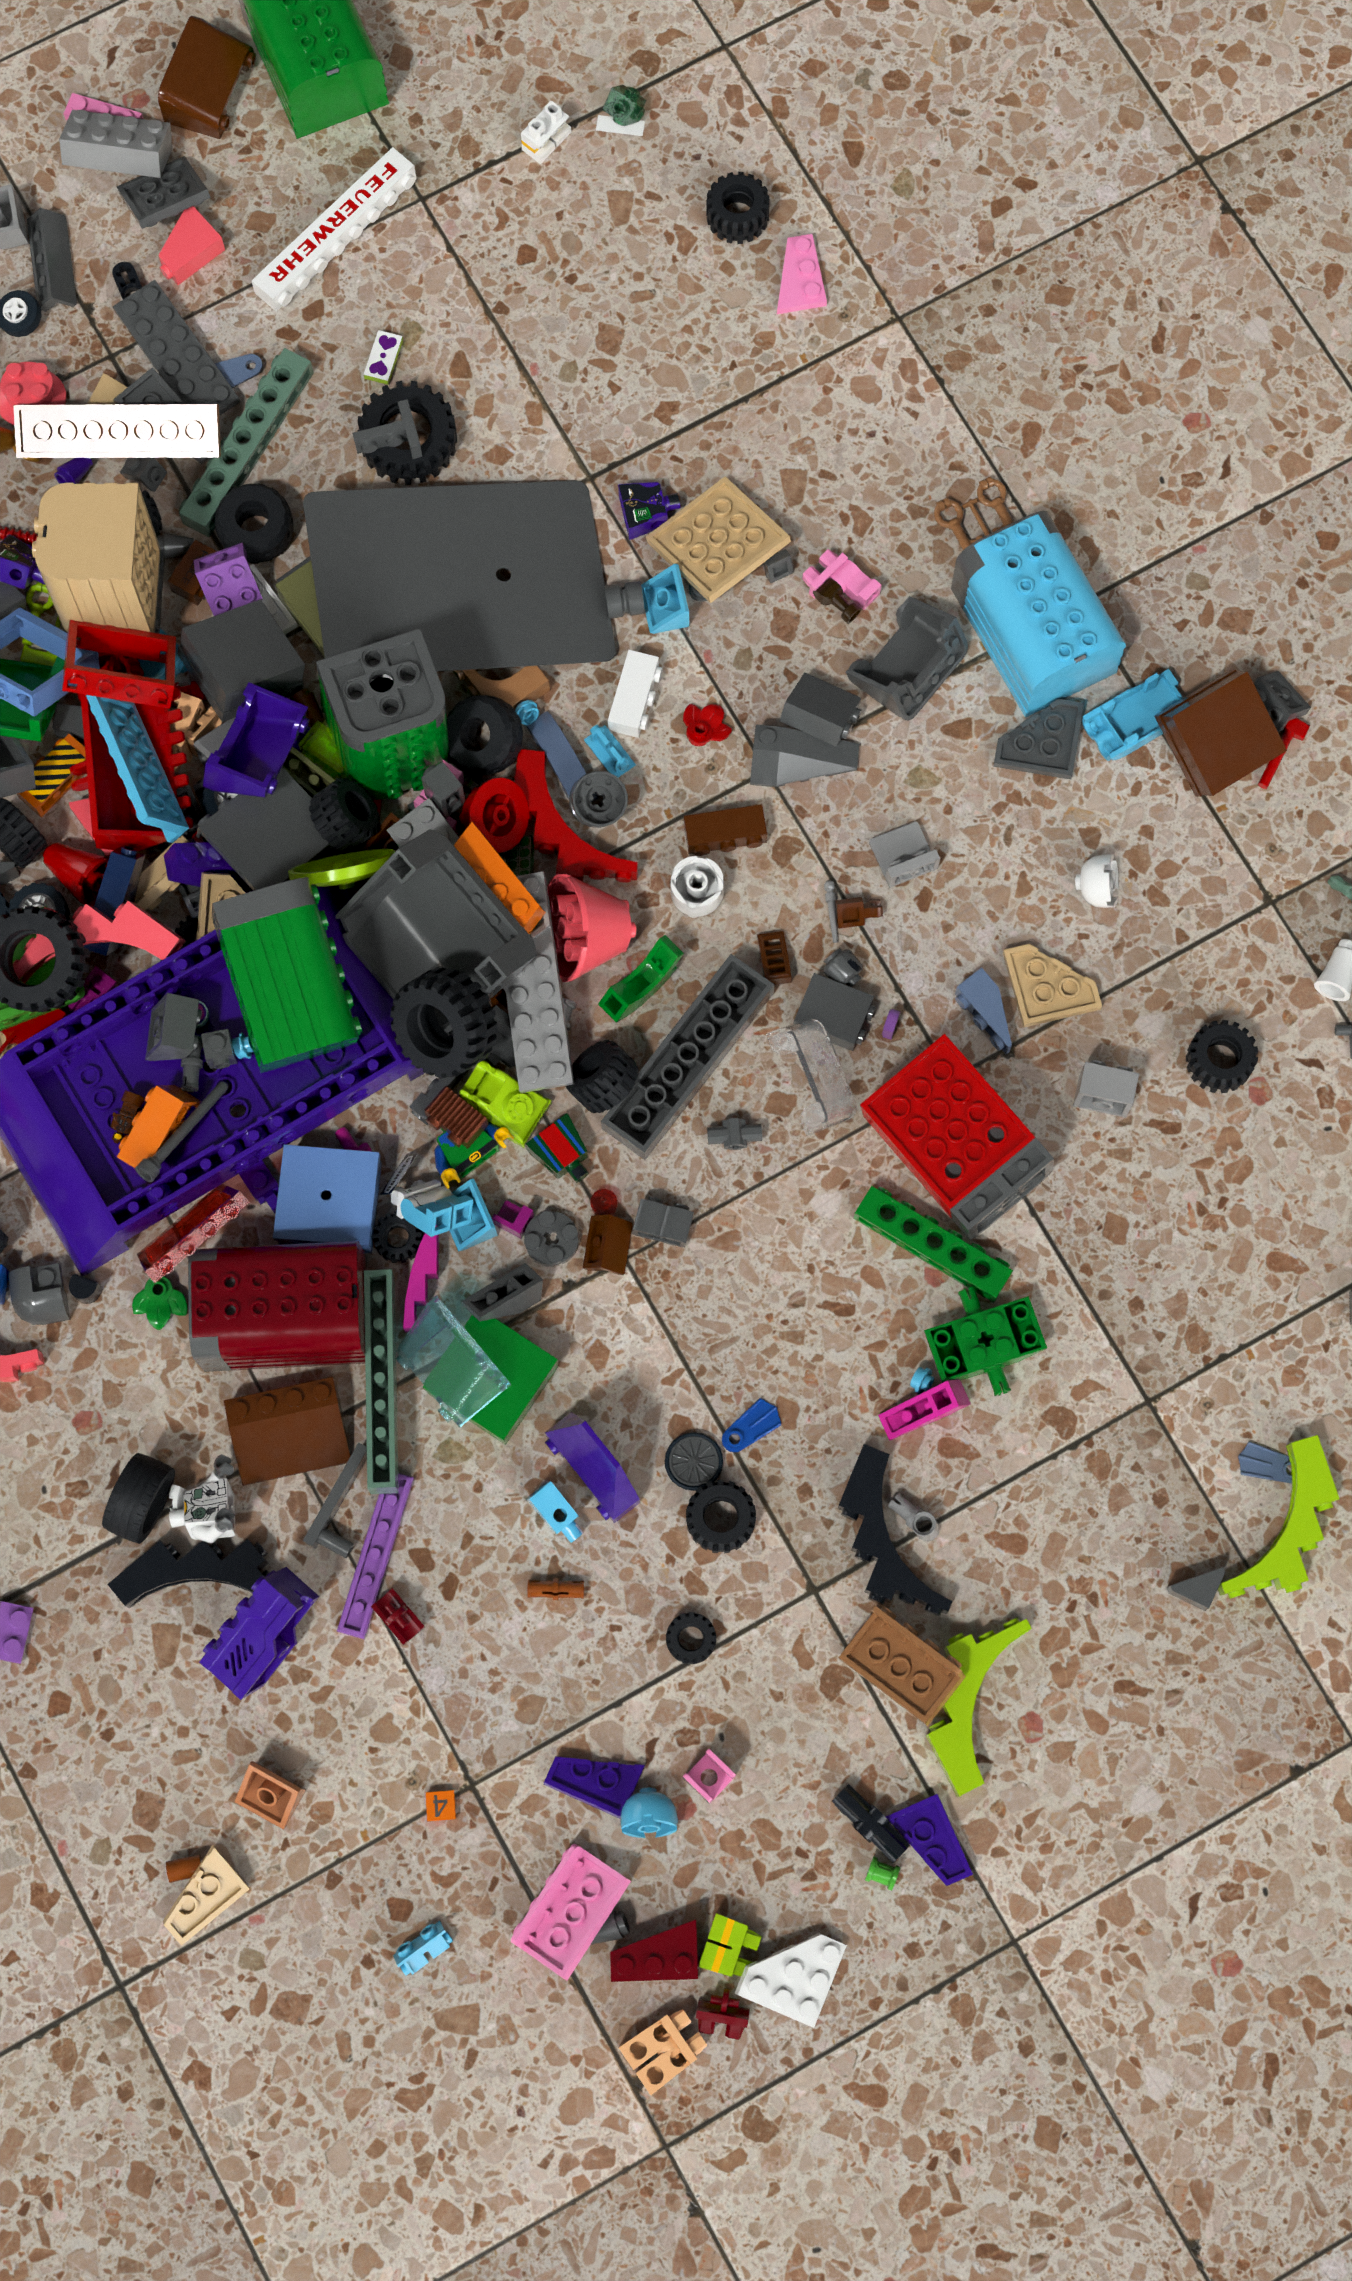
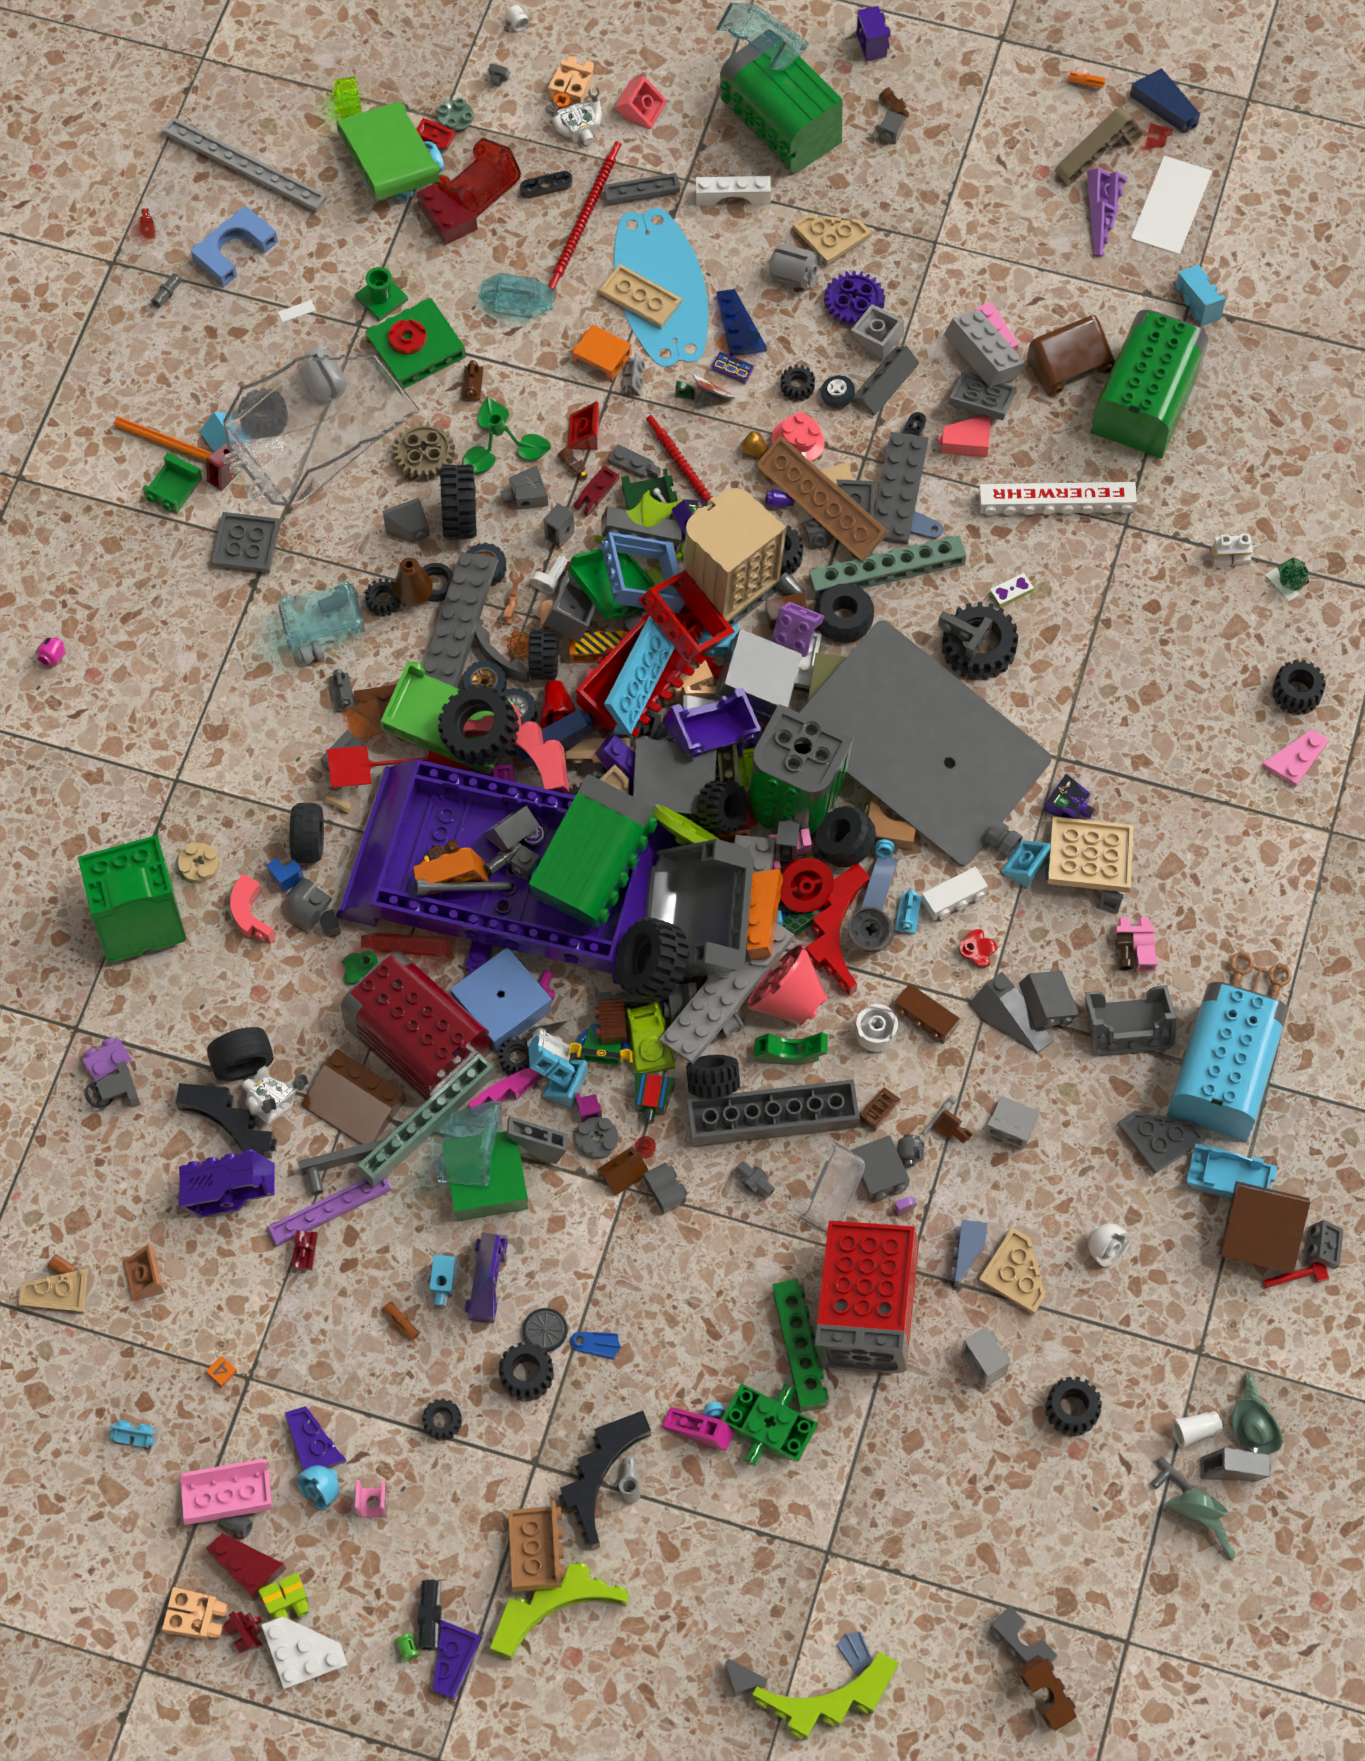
camera: 45 degrees right, 10 degrees down
(45, 1653) = (112, 1087): none -> dark grey piece

